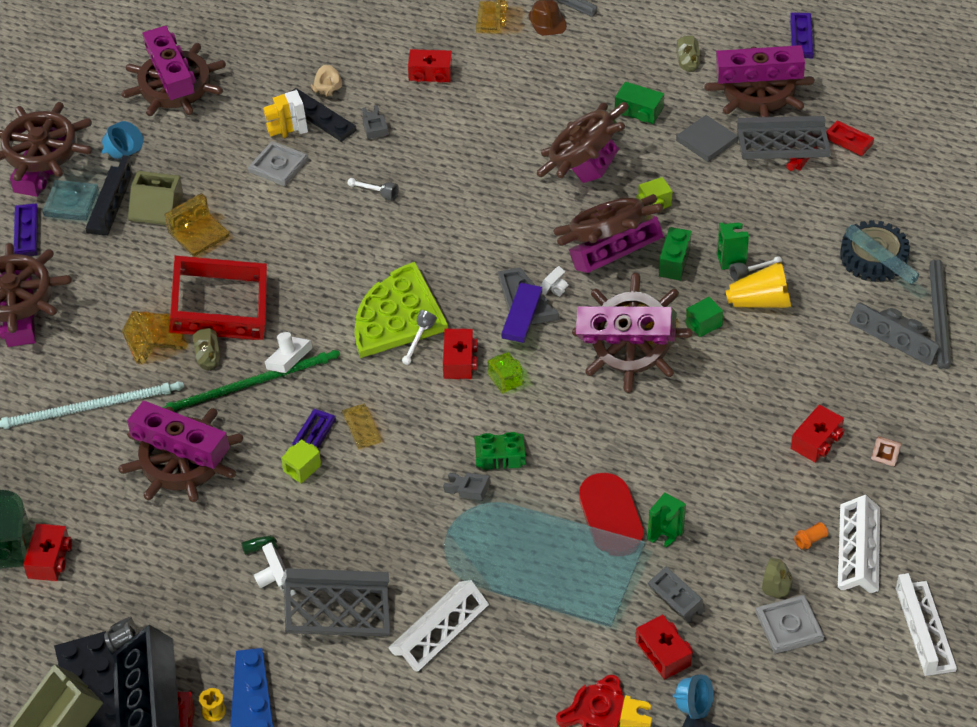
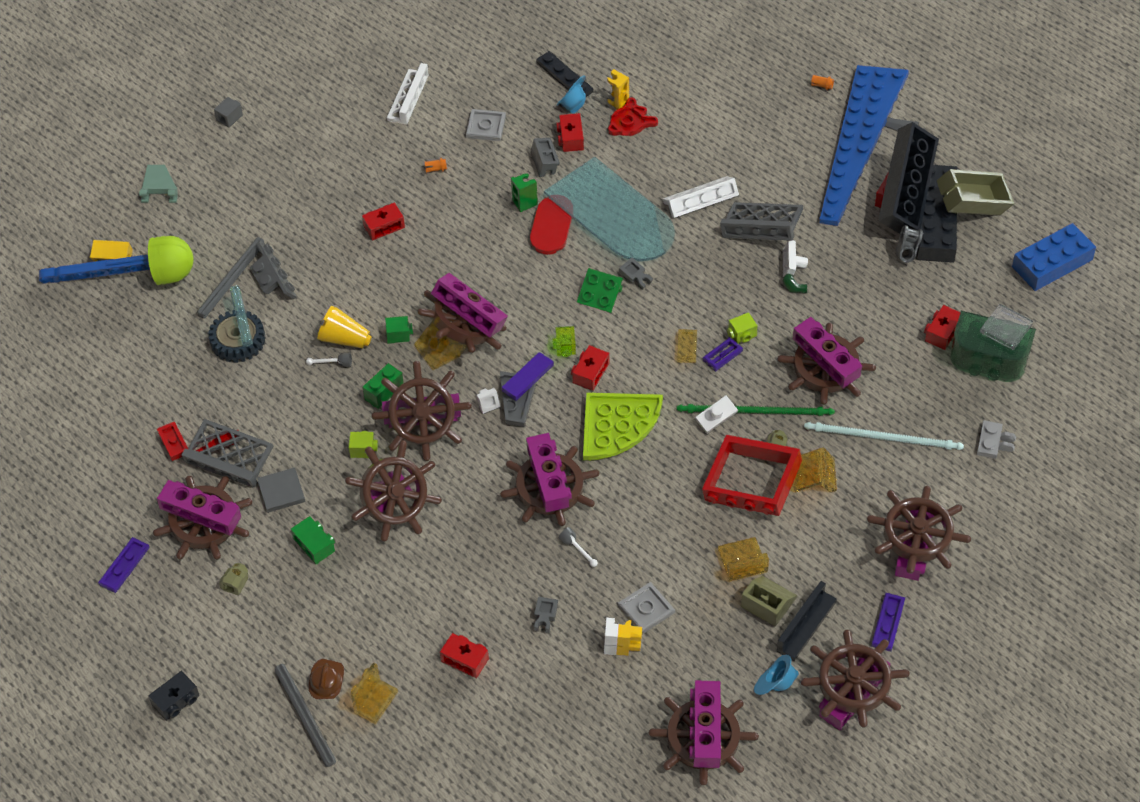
camera: 155 degrees left, 5 degrees up
(70, 200) = (831, 632): clear light blue plate -> none
(208, 704) = (862, 192): yellow bush -> none
(326, 81) = (565, 675): tan hat -> none
(326, 118) = (588, 648): black plate -> none
(425, 321) = (603, 392): hinge -> none
(440, 217) = (550, 479): none -> brick
(731, 245) = (342, 365): green hinge -> none
(777, 579) = (477, 144): olive rock -> none
(866, 541) = (406, 145): white fence -> none
(886, 451) = (346, 198): slope -> none

